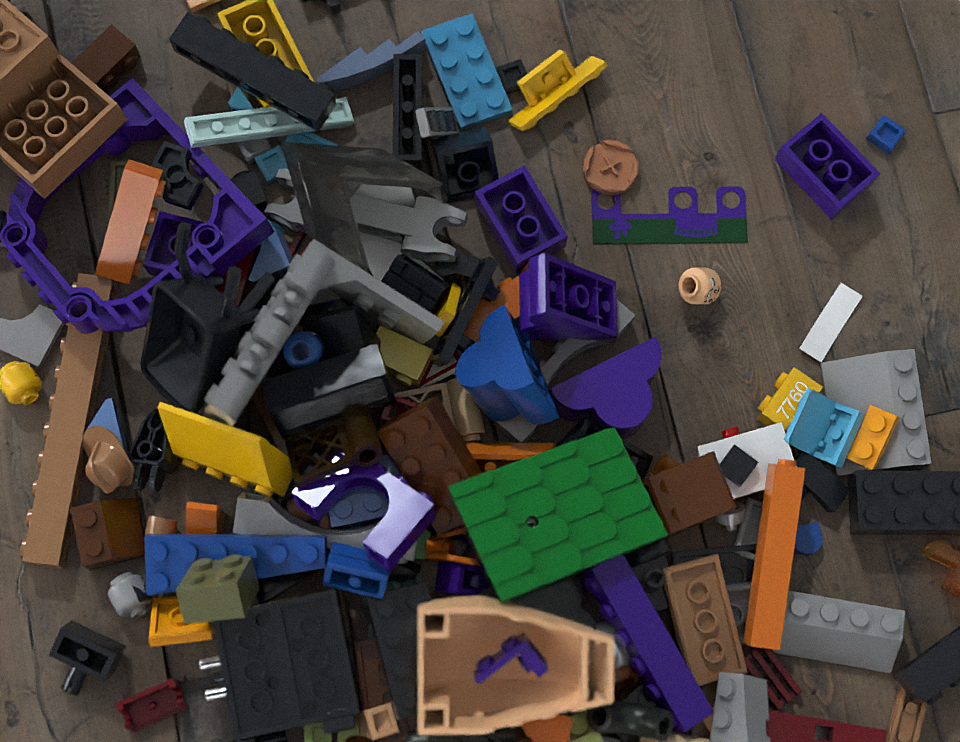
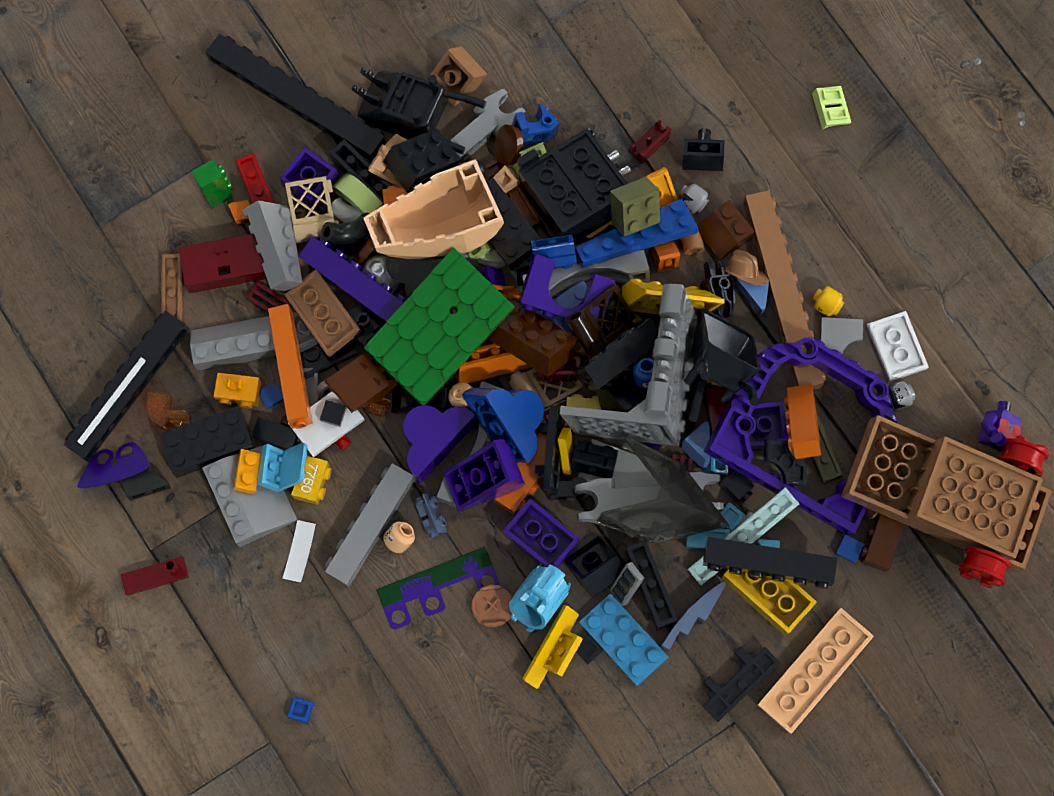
camera: 165 degrees right, 0 degrees up
(146, 73) = (850, 549): none -> blue tile
(529, 658) = (427, 231): dark purple bracket -> none
(551, 142) = (539, 597): none -> medium azure container
(557, 431) = (455, 395): none -> light nougat head
(647, 289) = (429, 506): none -> sand blue hinge
(732, 316) = (369, 525): none -> light grey brick
(826, 166) = (337, 660): dark purple brick -> none
(851, 560) = (237, 390): none -> light orange brick

